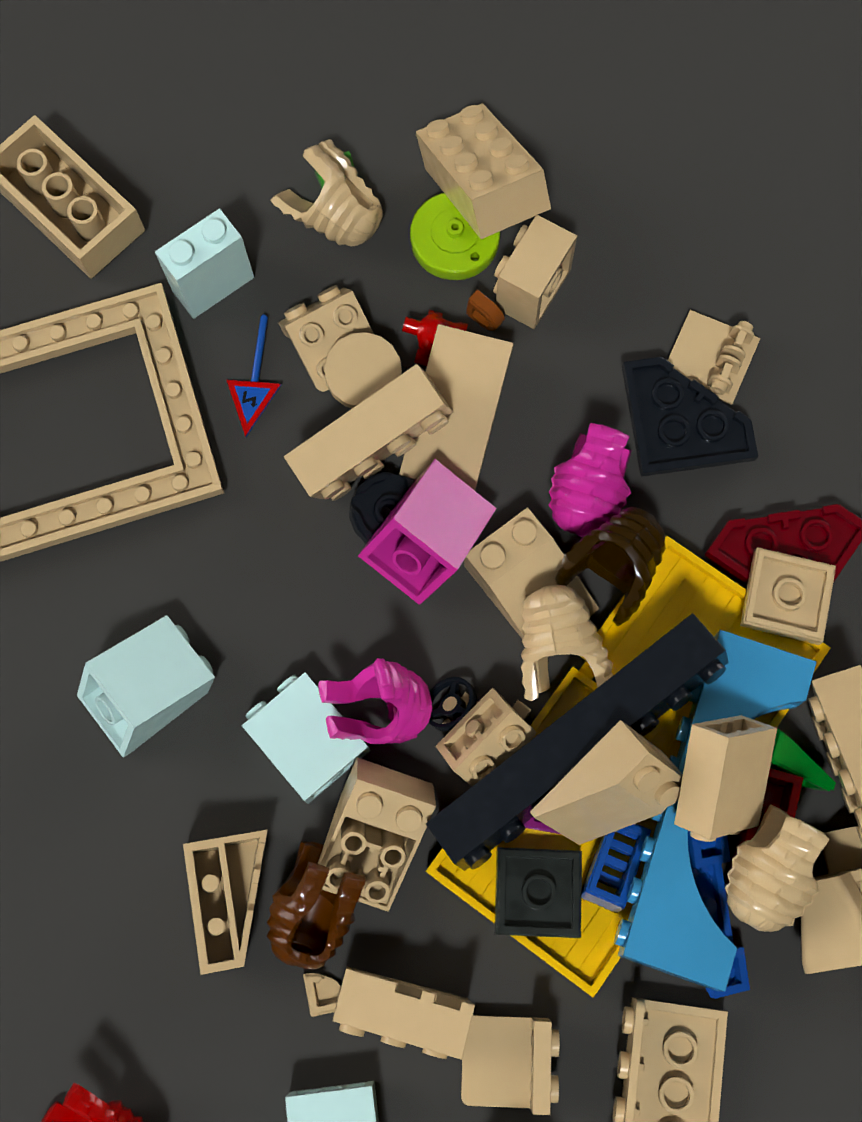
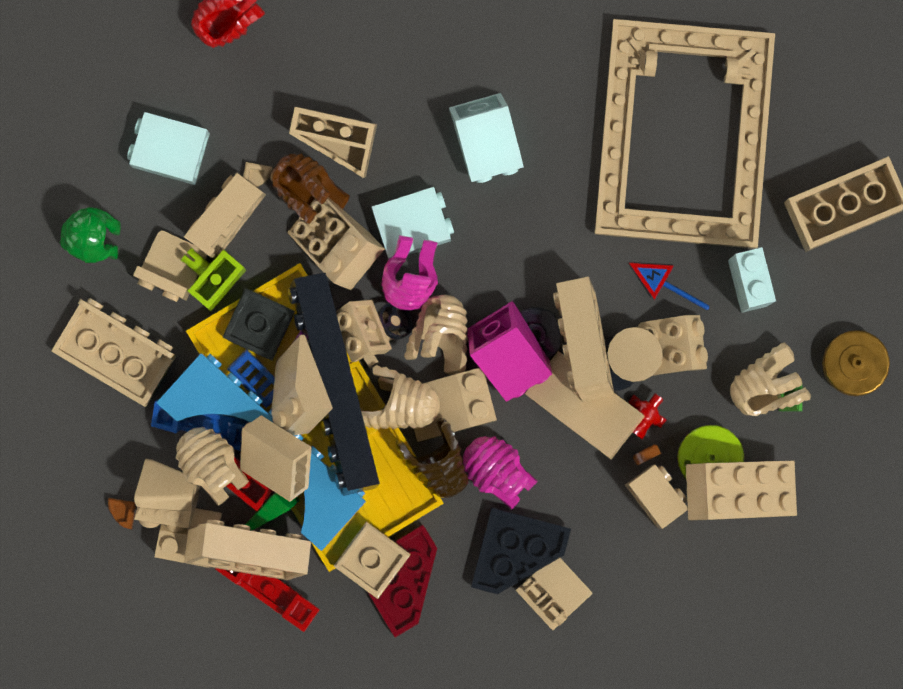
camera: 110 degrees right, 10 degrees up
(262, 116) = (856, 363): none -> pearl gold wheel
(428, 632) = (442, 326): none -> tan hair
(499, 989) = (214, 278): none -> lime brick

